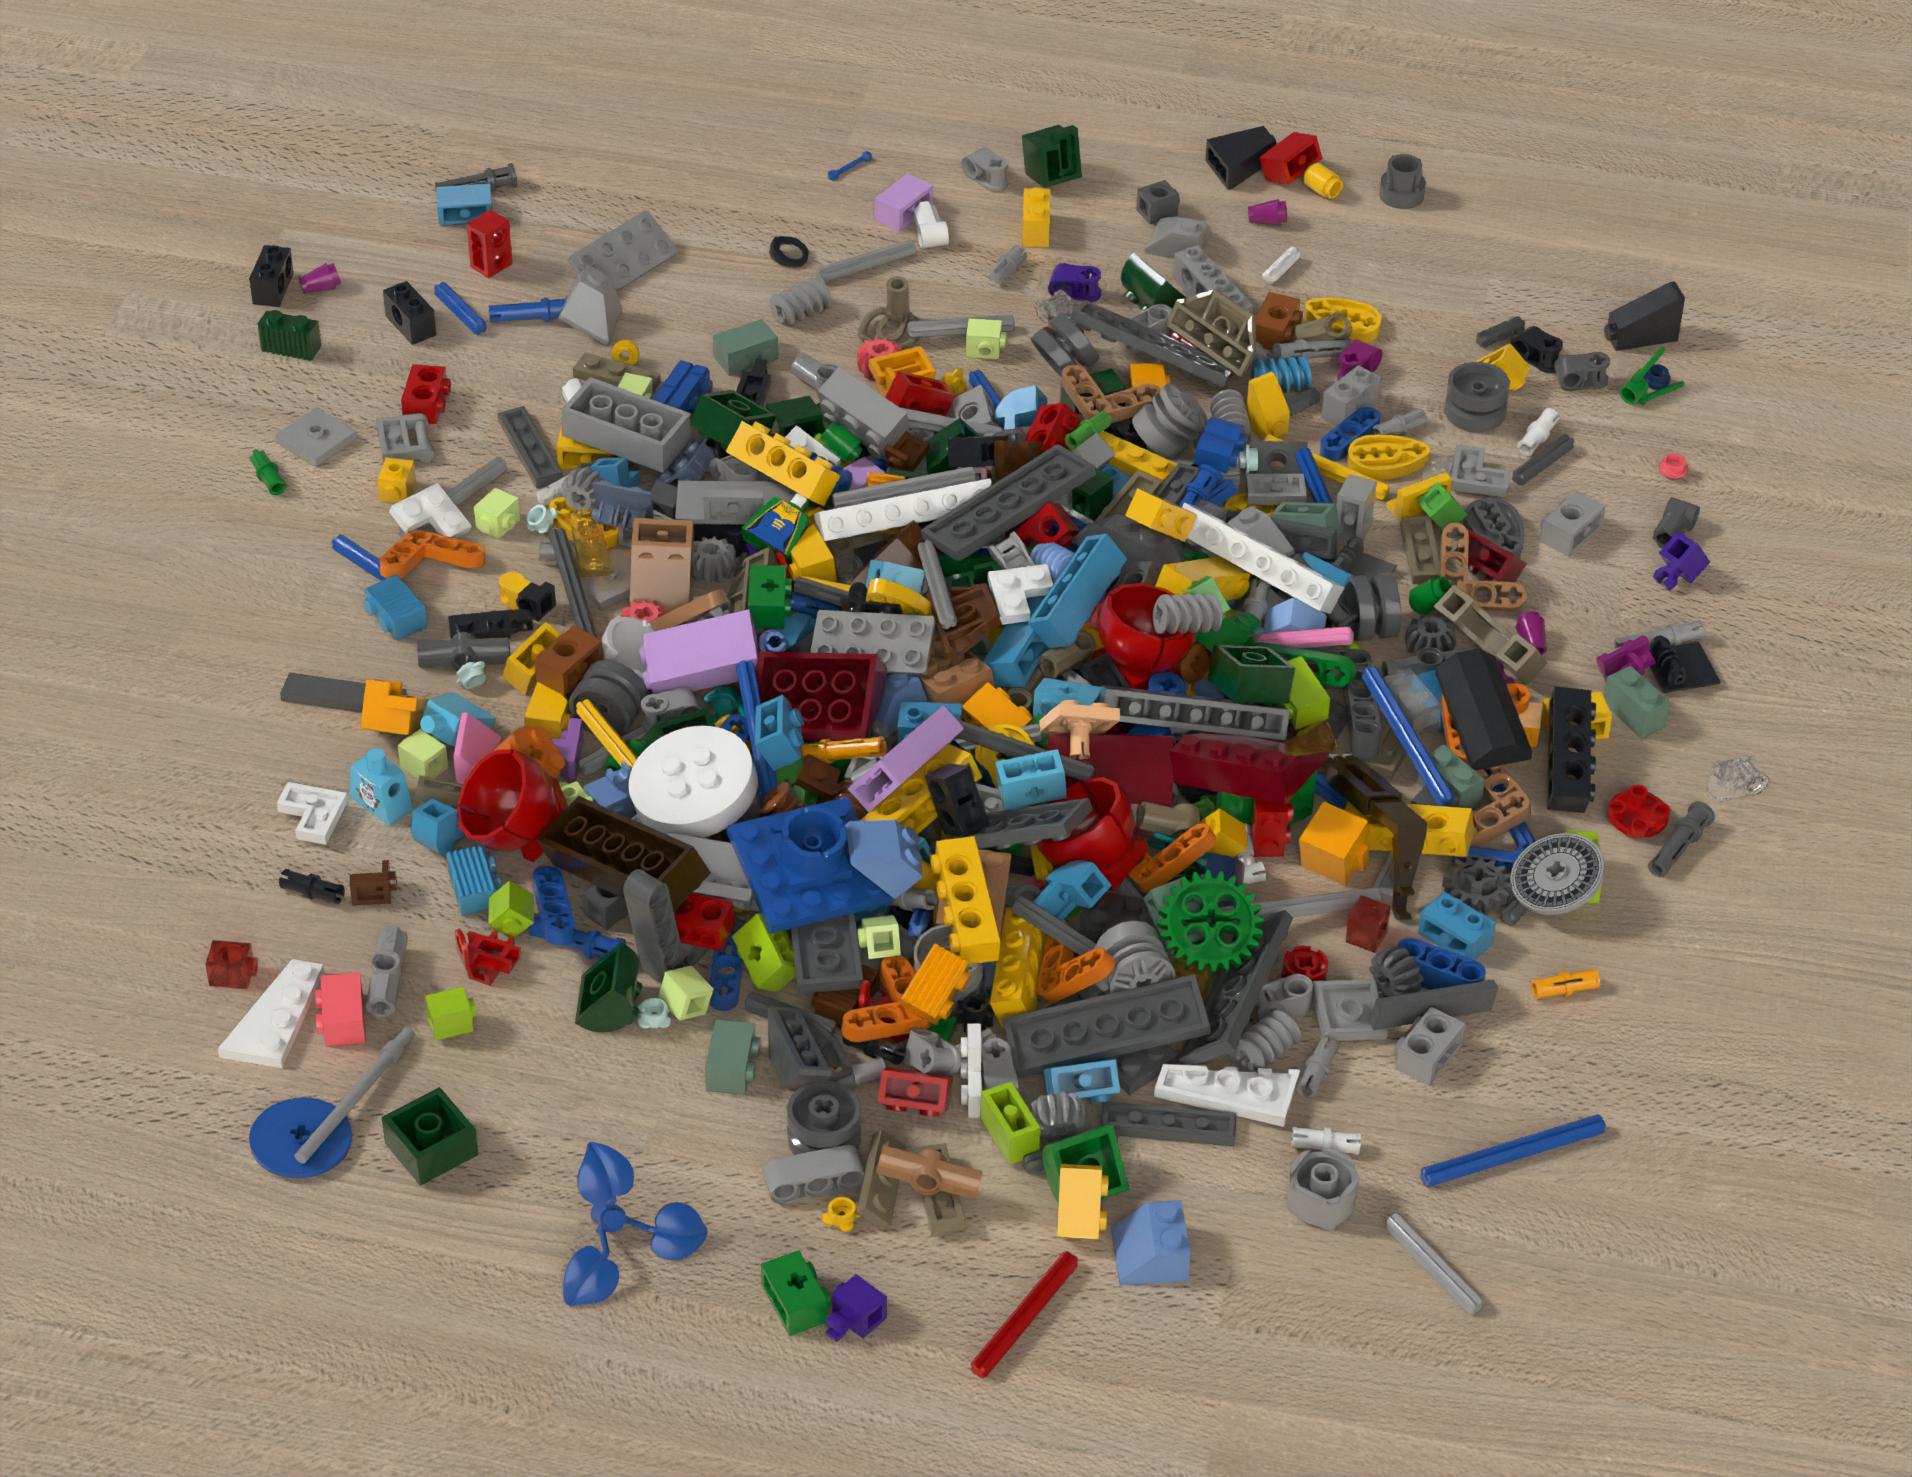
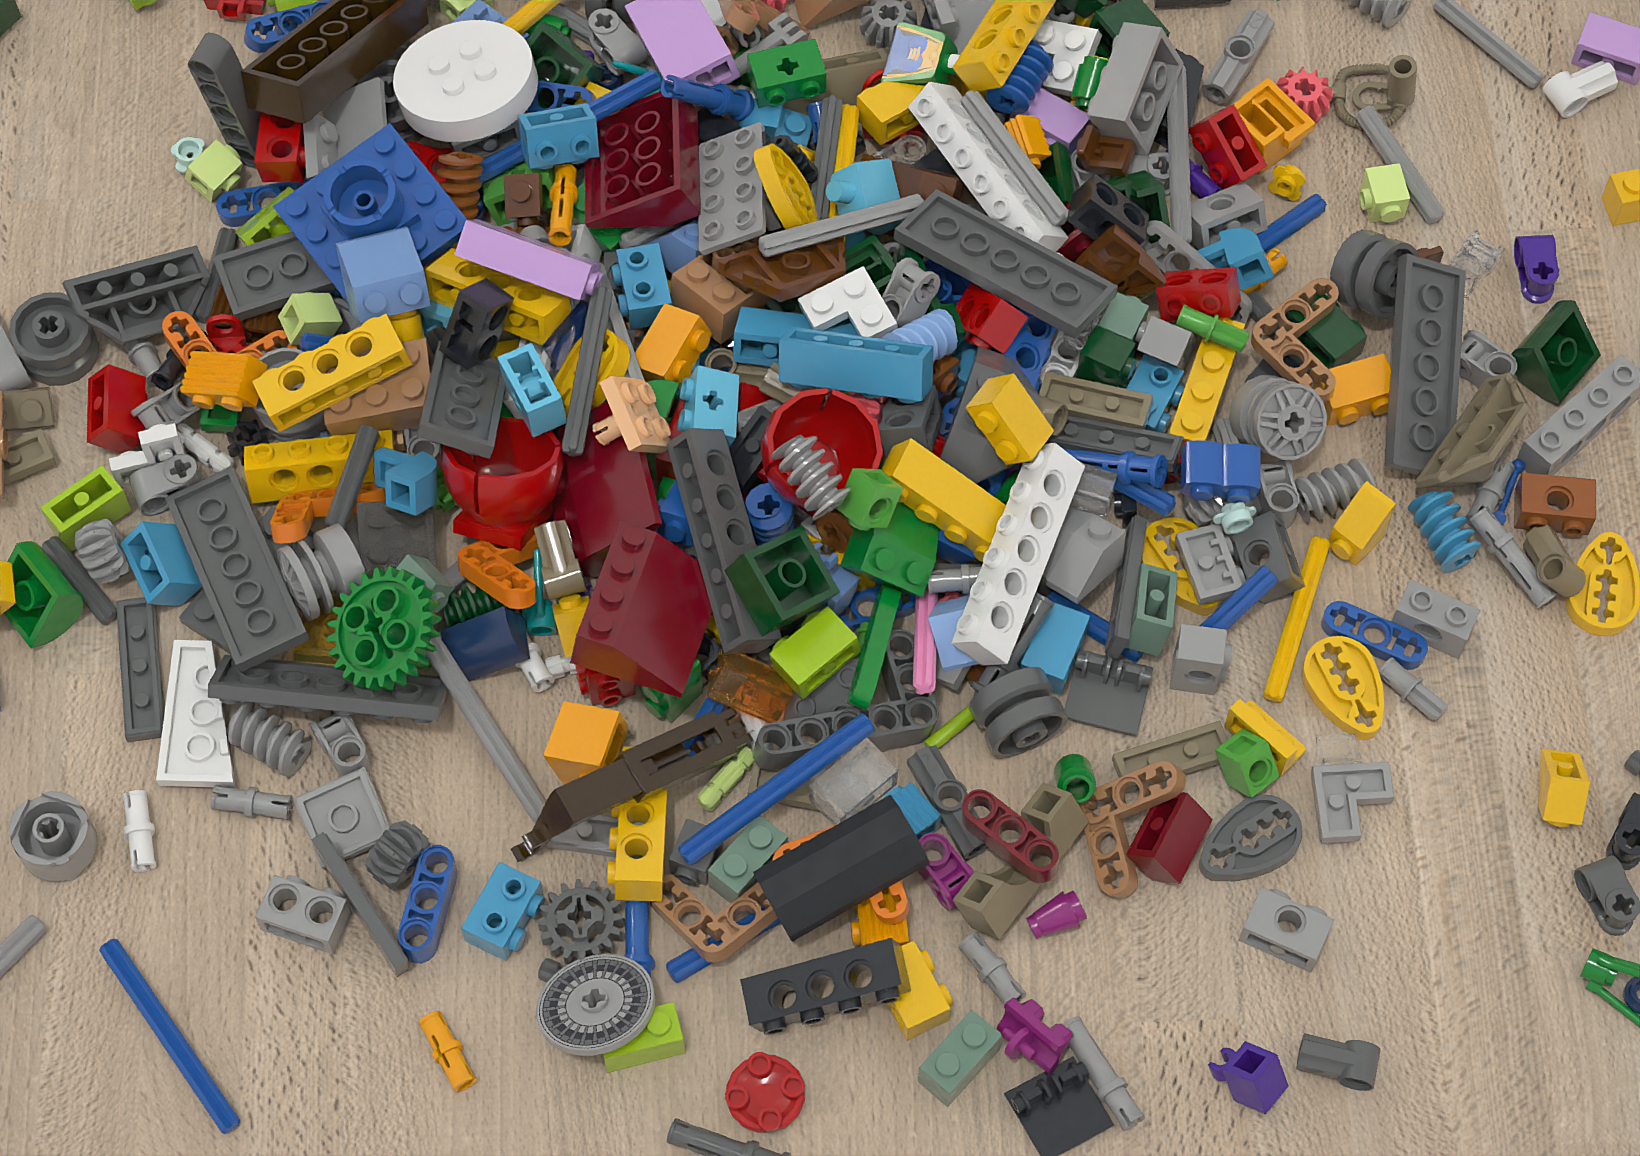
camera: 75 degrees right, 20 degrees up
(609, 992) = (184, 110): dark green brick -> none
(731, 1057) = (136, 233): sand green brick -> none
(1007, 264) = (1543, 186): light grey axle -> none
(1300, 401) = (1407, 561): dark grey axle -> none
(1305, 962) = (398, 758): red wheel -> none
(1359, 354) = (1516, 615): magenta piece -> none
(1367, 924) = (480, 811): clear red brick -> none
(1430, 633) = (1007, 781): dark grey gear -> none
(1477, 396) = (1490, 767): dark grey wheel -> none
(1479, 623) = (1002, 819): none -> dark red beam
(1538, 432) = (1462, 859): white pin -> none
(1543, 459) = (1412, 876): dark grey axle -> none
(1567, 676) = (991, 968): none -> light grey pin
(1673, 466) = (1459, 1043): coral plate -> none

